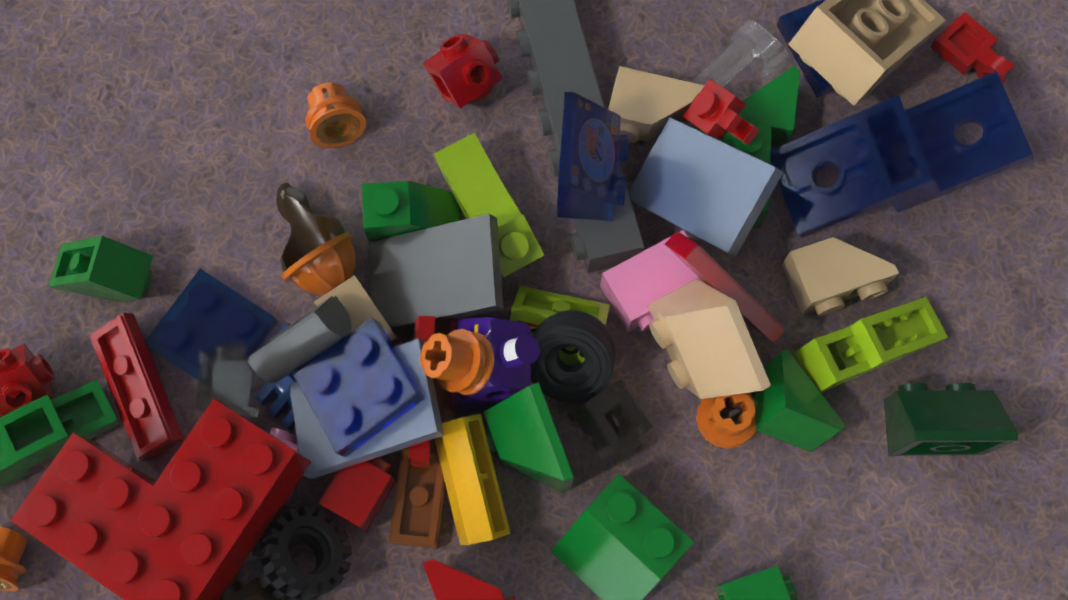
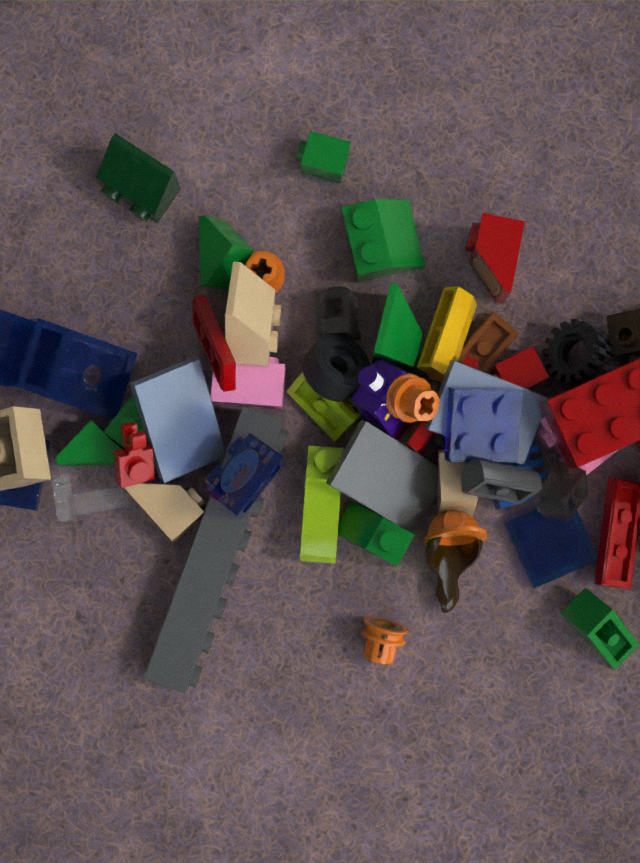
camera: 145 degrees left, 10 degrees up
(464, 69) = (274, 612): red brick -> none
(833, 272) = (134, 315): tan slope -> none
(870, 344) = (143, 256): lime slope -> none

